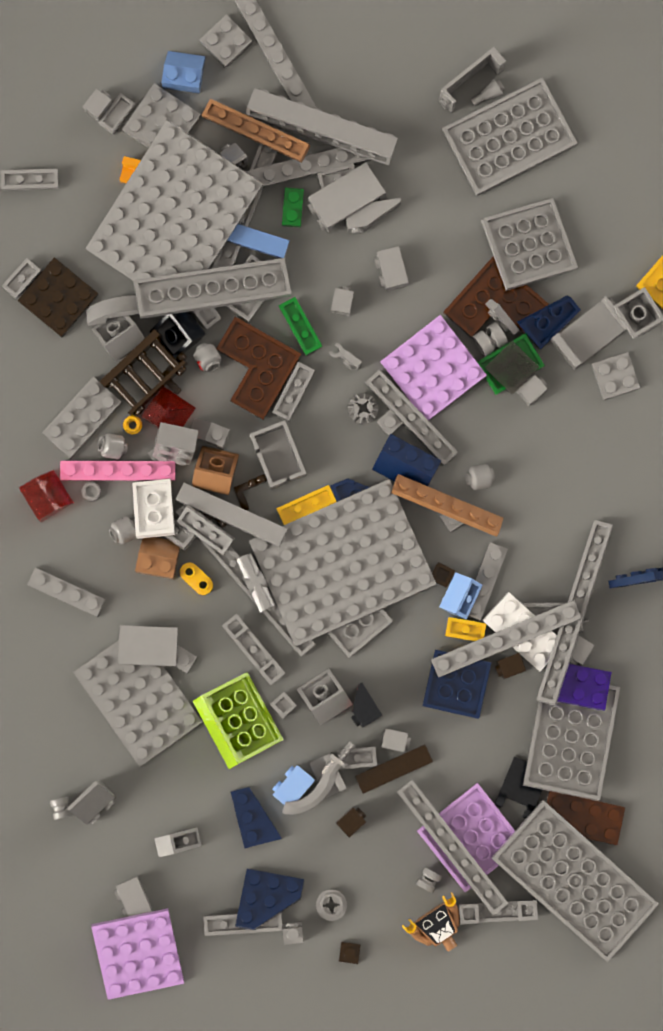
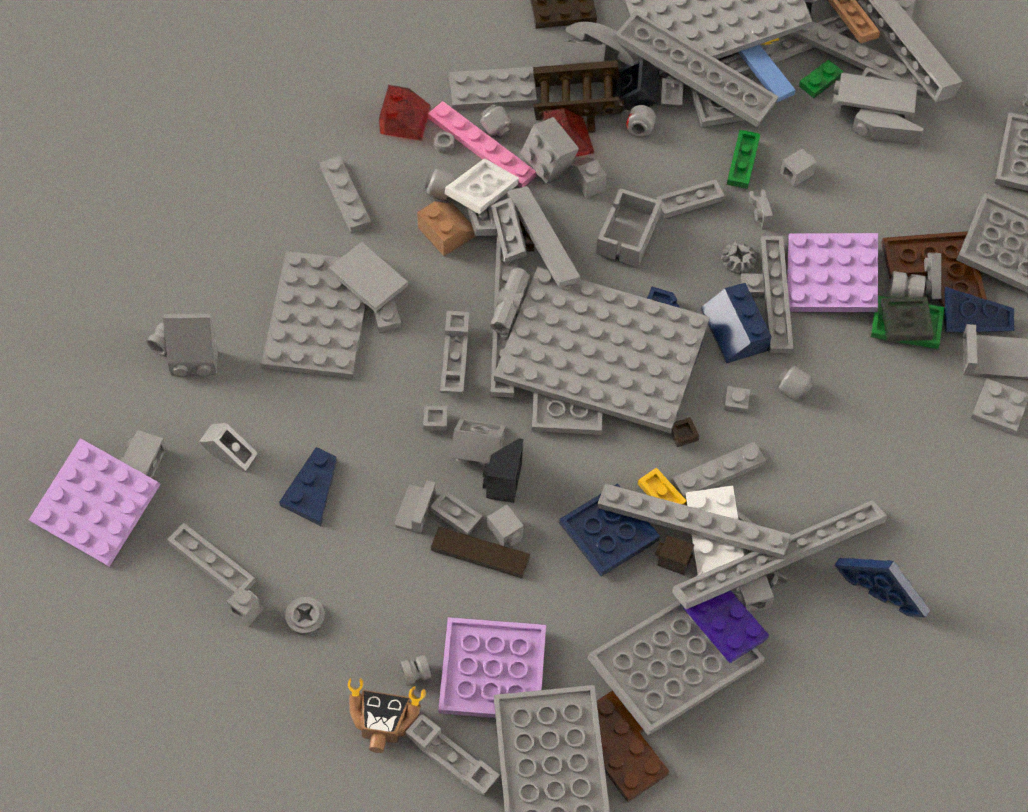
camera: 45 degrees right, 25 degrees down
(128, 420) = (525, 118): yellow plate -> none
(196, 578) = (463, 266): yellow plate -> none
(215, 470) = (562, 201): medium nougat slope -> none
(238, 720) = (383, 396): lime slope -> none
(247, 485) = (586, 235): dark brown piece -> none
(265, 897) = (254, 554): dark blue plate -> none
(267, 361) = (687, 158): reddish brown plate -> none
(293, 786) = (374, 488): light blue brick -> none
(306, 505) = (617, 282): yellow plate -> none
(323, 787) = (400, 504): light grey sword -> none
(349, 952) = (278, 672): dark brown plate -> none
(351, 821) = (396, 553): dark brown brick -> none
(392, 269) = (866, 176): light grey brick -> none
(447, 505) = (743, 379): medium nougat plate -> none
(452, 847) = (466, 658): light grey plate -> none
(460, 595) = (684, 458): light blue brick -> none
(514, 789) = (577, 666): black flag -> none
(532, 389) = (909, 355): light grey brick -> none

